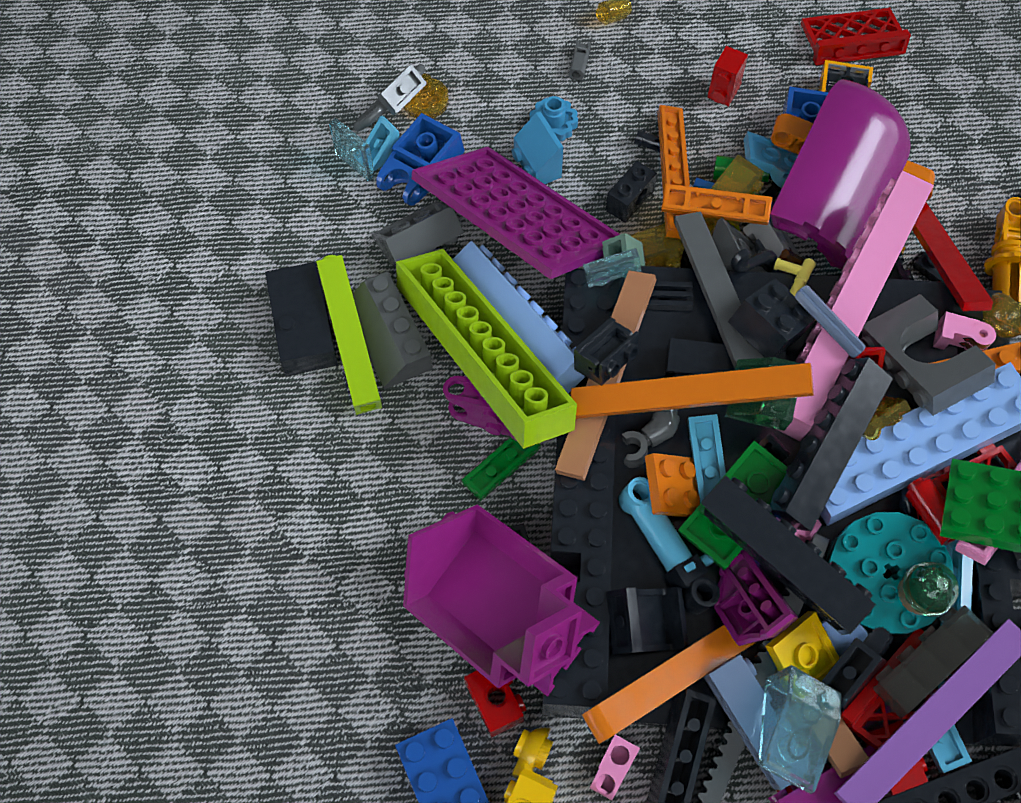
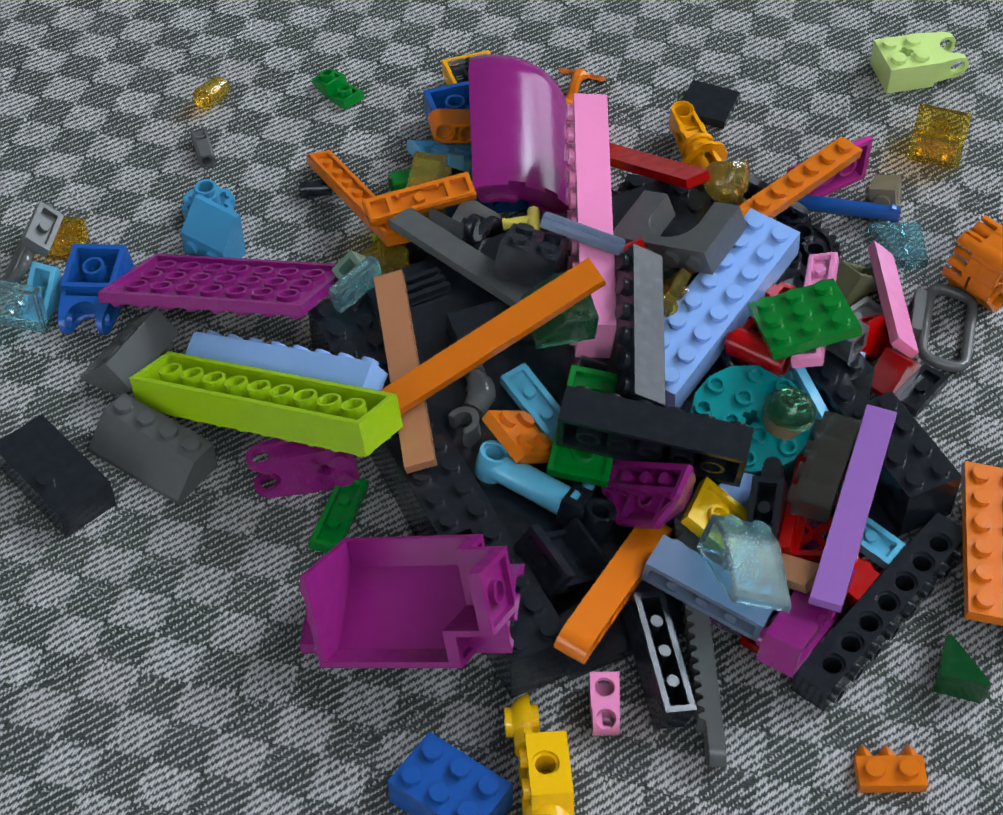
camera: 30 degrees left, 15 degrees down
(349, 334) = (124, 470): lime brick -> none
(495, 717) = (464, 720): red brick -> none
(606, 351) = (396, 343): black hinge -> none
(631, 191) = (324, 234): black brick -> none
(717, 40) = (335, 88): none -> green slope
(727, 76) = (358, 105): red brick -> none
(855, 45) = (466, 39): red fence -> none
(942, 126) = (578, 76): none -> orange piece
(963, 332) = (691, 208): bright pink leg -> none

